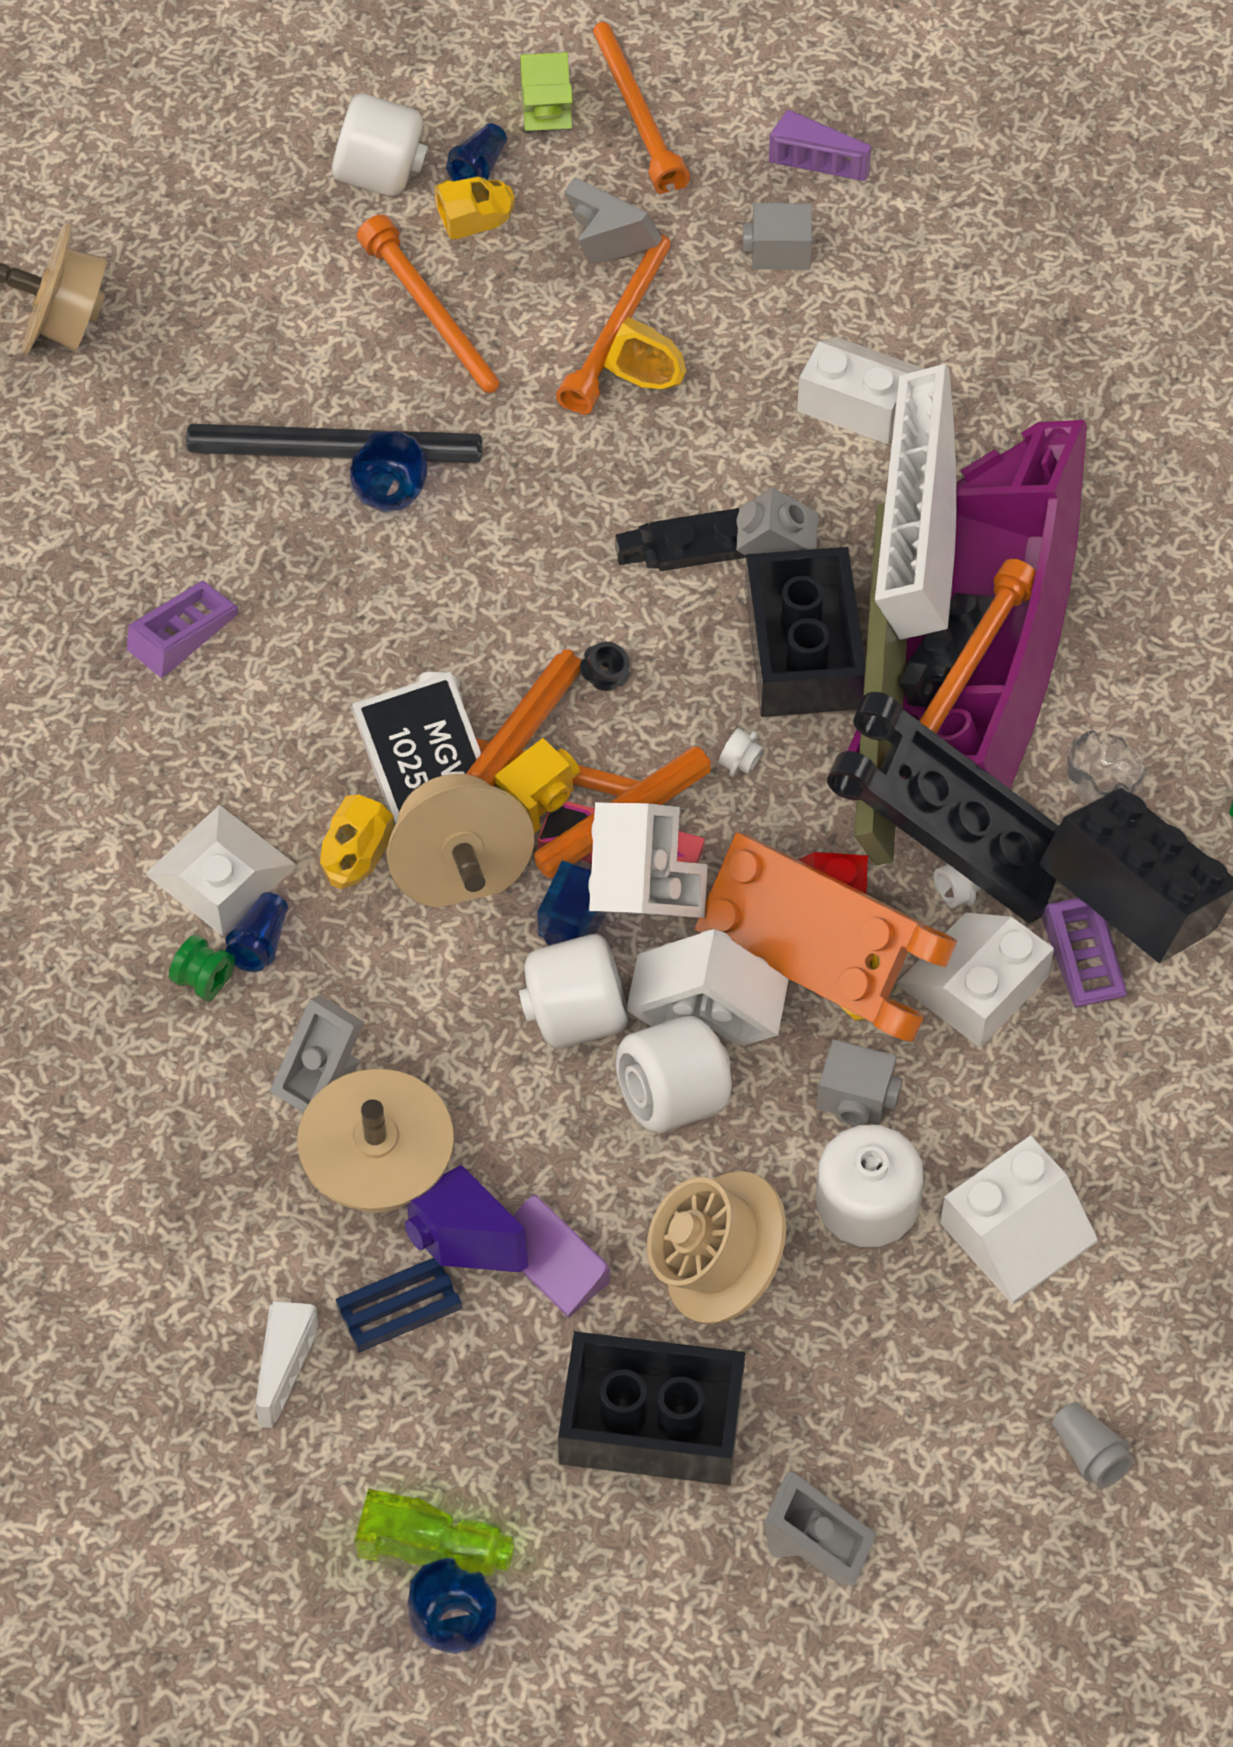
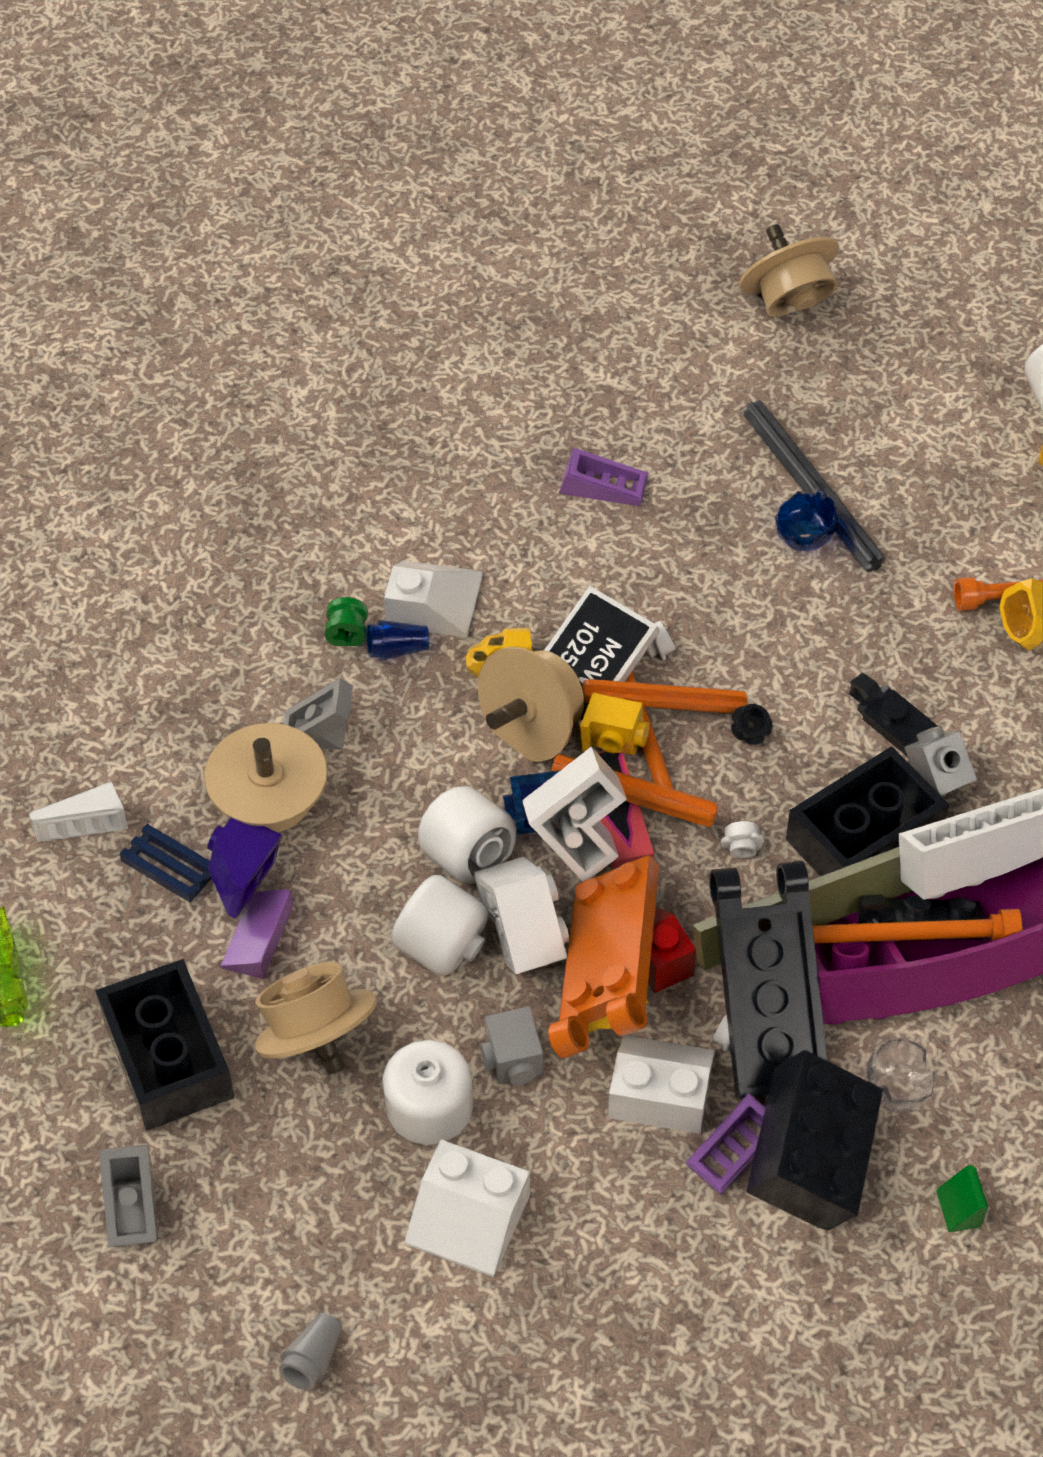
camera: 60 degrees right, 5 degrees down
(381, 239) = (998, 423): orange piece -> none

